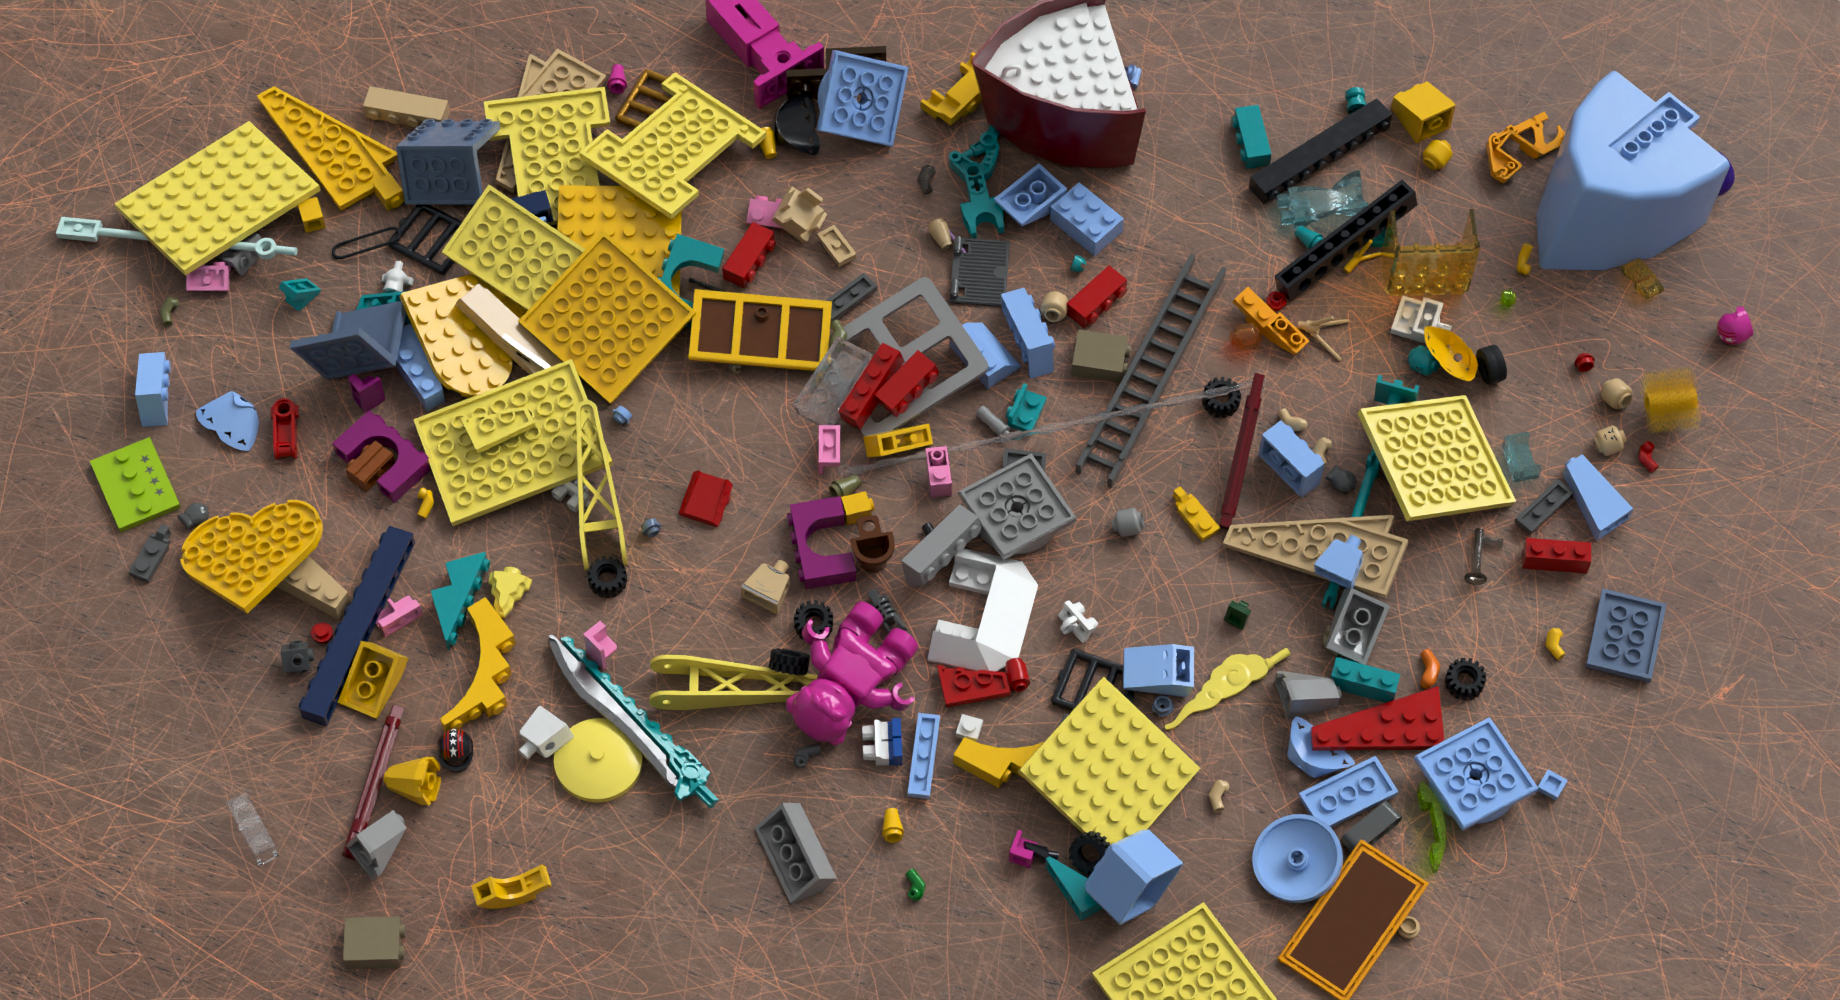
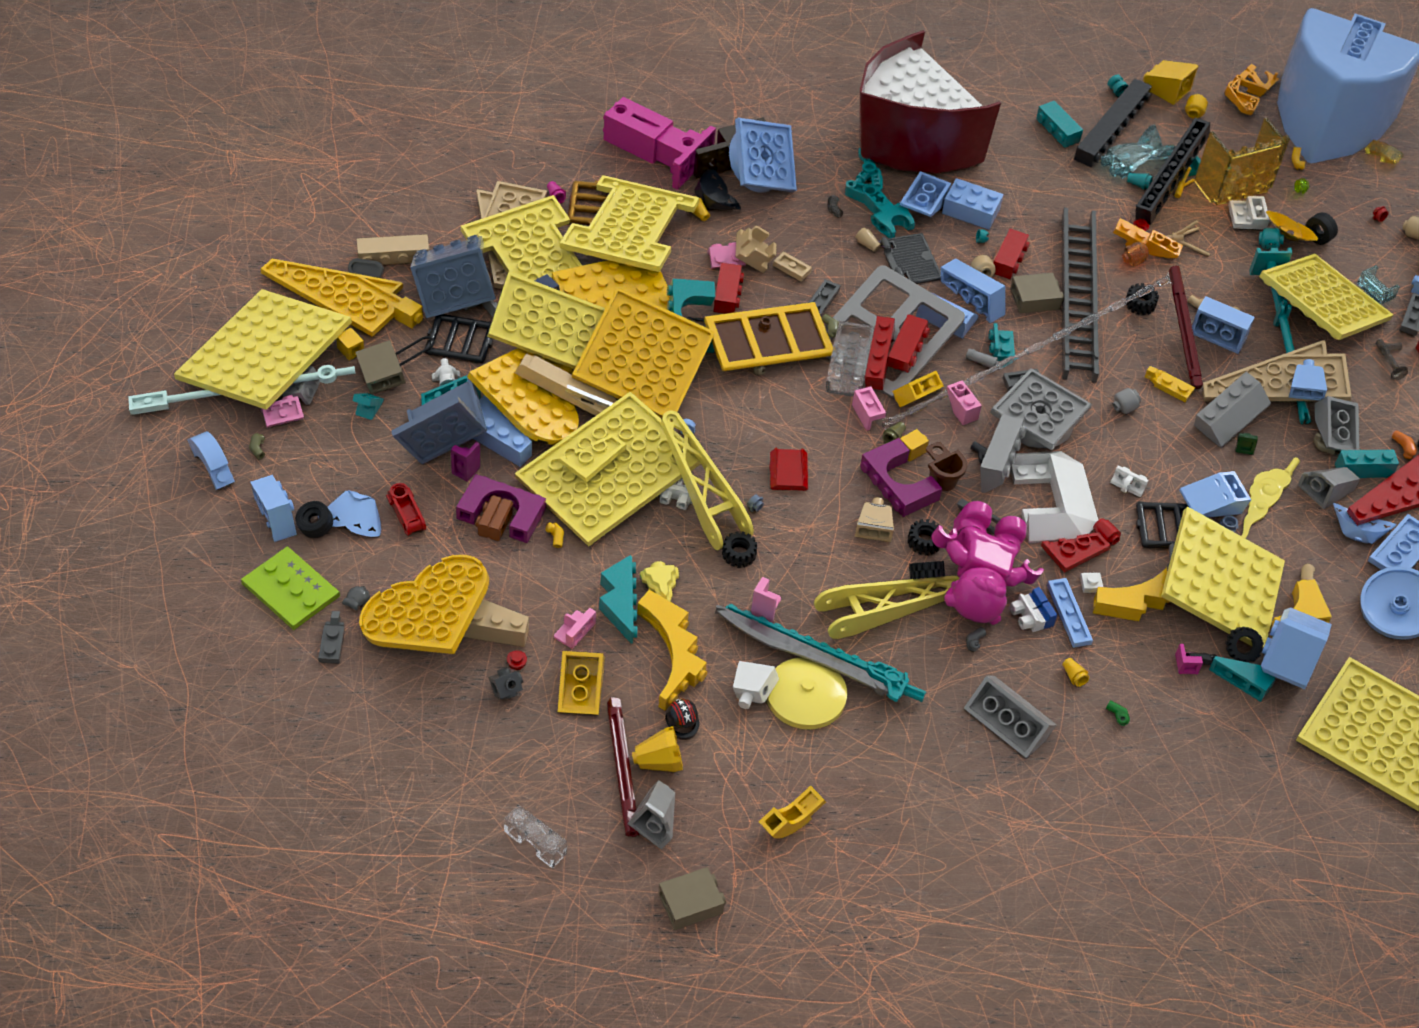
camera: 25 degrees left, 10 degrees down
(112, 316) = (212, 456): none -> light blue arch
(194, 422) = (316, 529): none -> black tyre
(329, 252) = (380, 367): none -> dark tan brick
(357, 624) = (546, 647): dark blue brick -> none
(368, 124) = (366, 267): none -> dark grey tile
(959, 100) = (835, 142): yellow bracket -> none
(1192, 832) = (1309, 601): none -> yellow arch
(1241, 570) = (1232, 410): none -> light grey slope
(1341, 479) = (1261, 332): dark grey animal -> none

